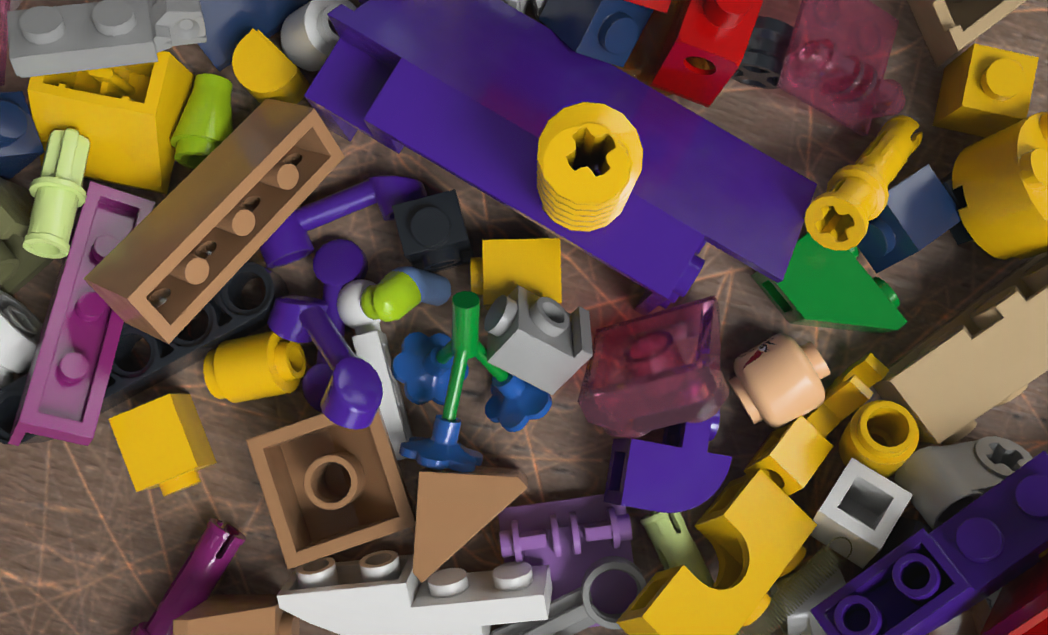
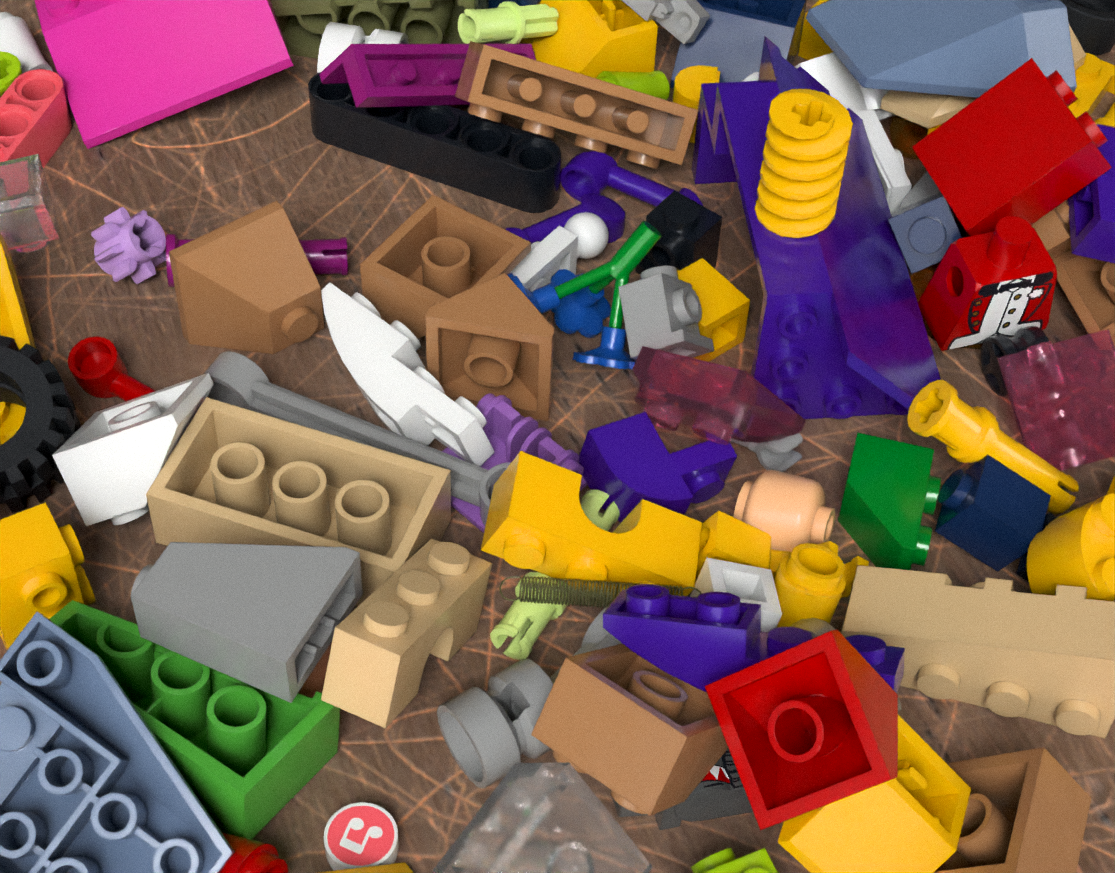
camera: 45 degrees right, 35 degrees down
(163, 444) = (381, 183): yellow brick -> none
(254, 367) = (485, 195): yellow brick -> none
(354, 385) = (533, 205): dark purple bar -> none
(403, 291) = (607, 236): lime arm -> none

